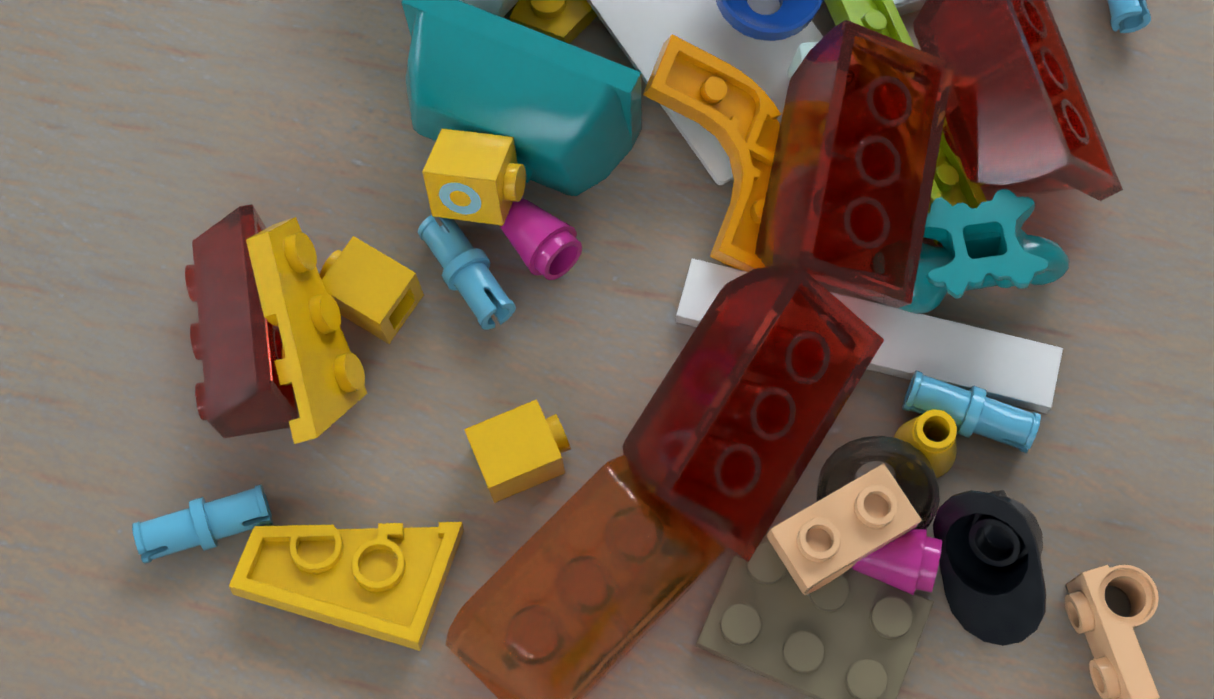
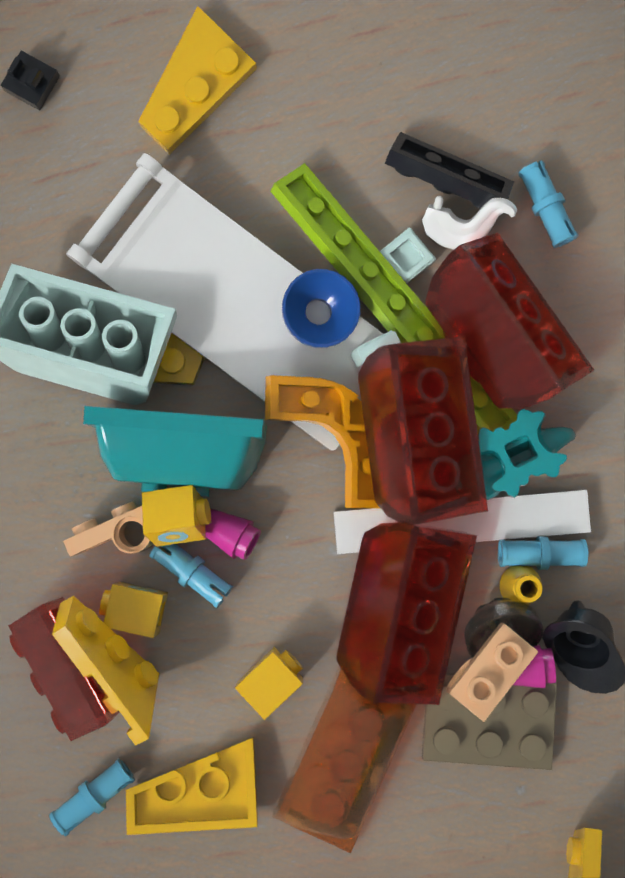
camera: 20 degrees left, 15 degrees up
(379, 178) = (90, 534): none -> light nougat plate

